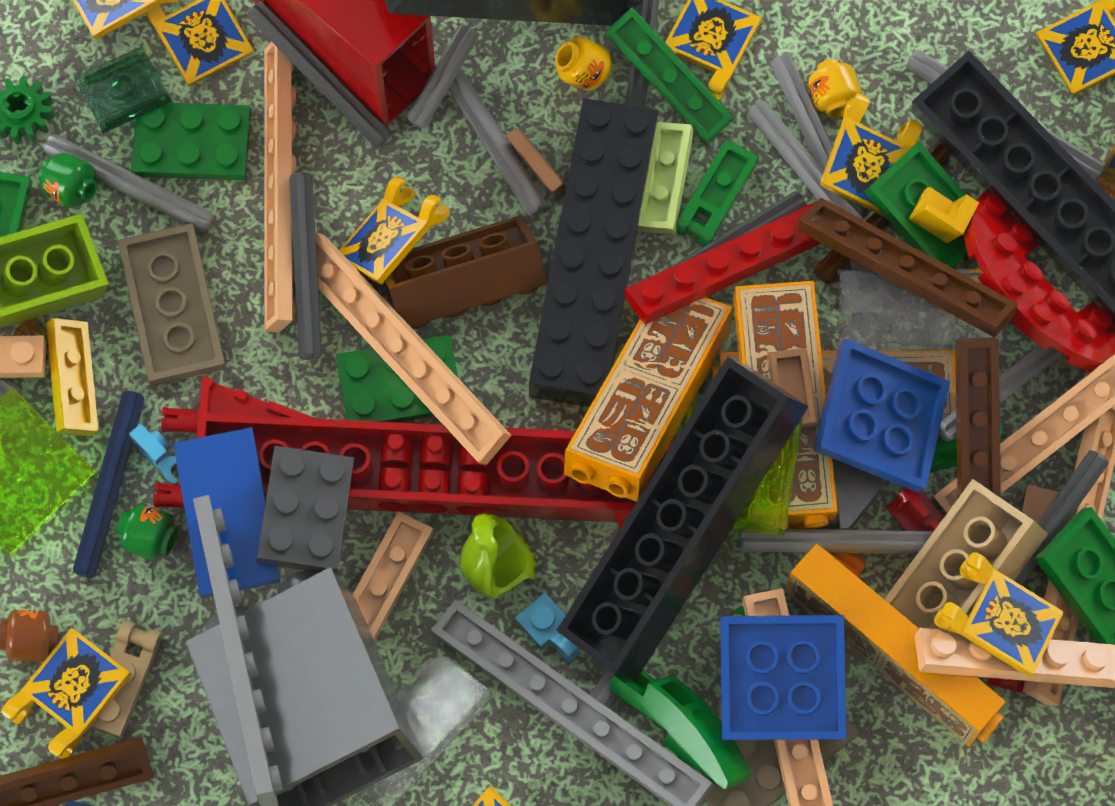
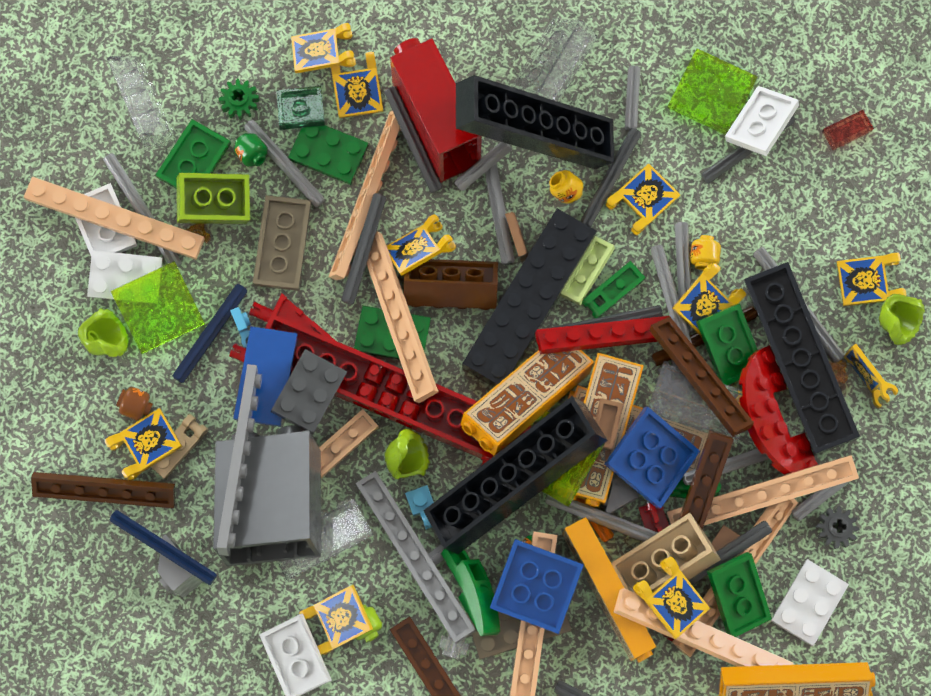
camera: 20 degrees right, 5 degrees up
(72, 377) = (211, 265): yellow plate -> none
(147, 532) = (220, 369): green head -> none
(669, 75) = (612, 211): green tile -> none
(942, 216) = (736, 352): yellow panel -> none

